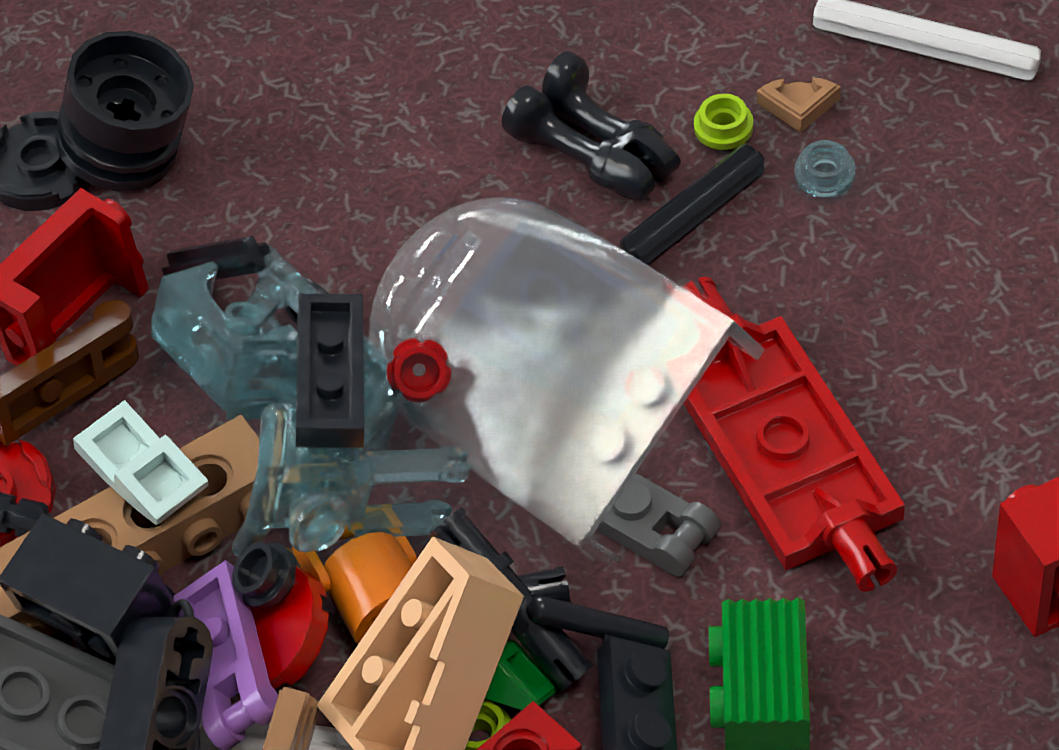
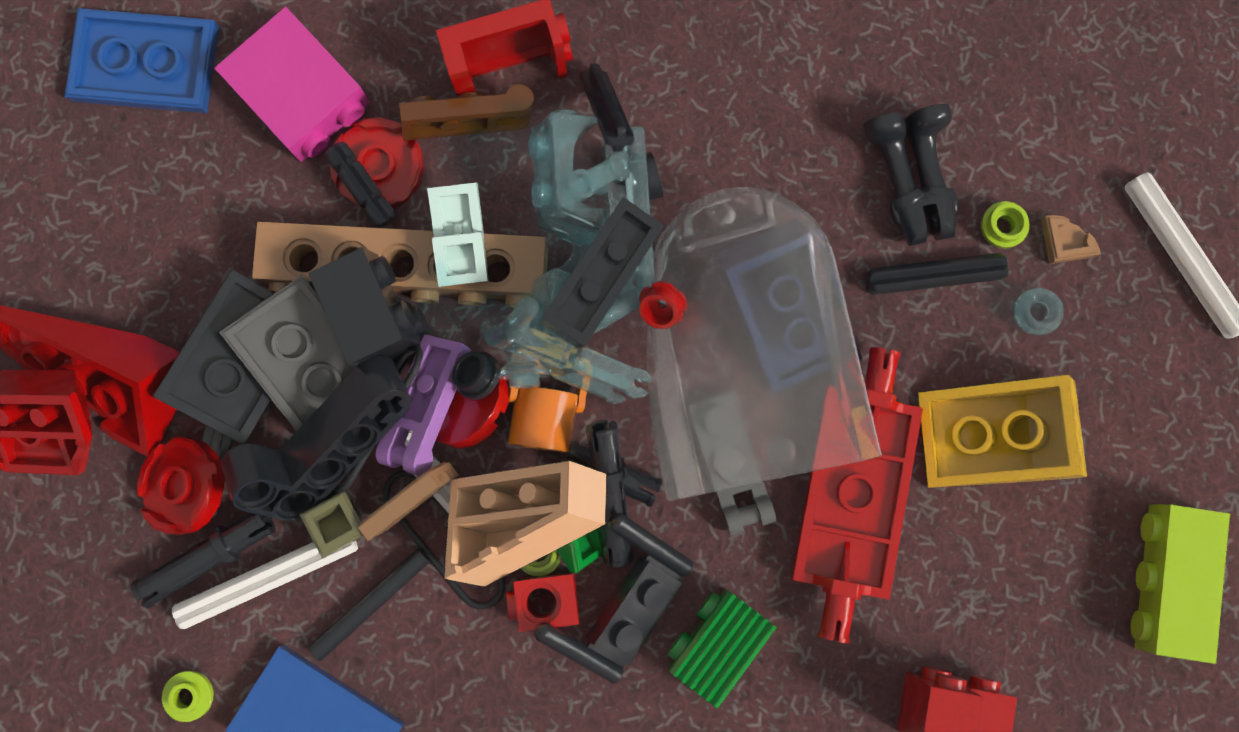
camera: 30 degrees right, 30 degrees up
(886, 284) = (1003, 433): none -> yellow slope

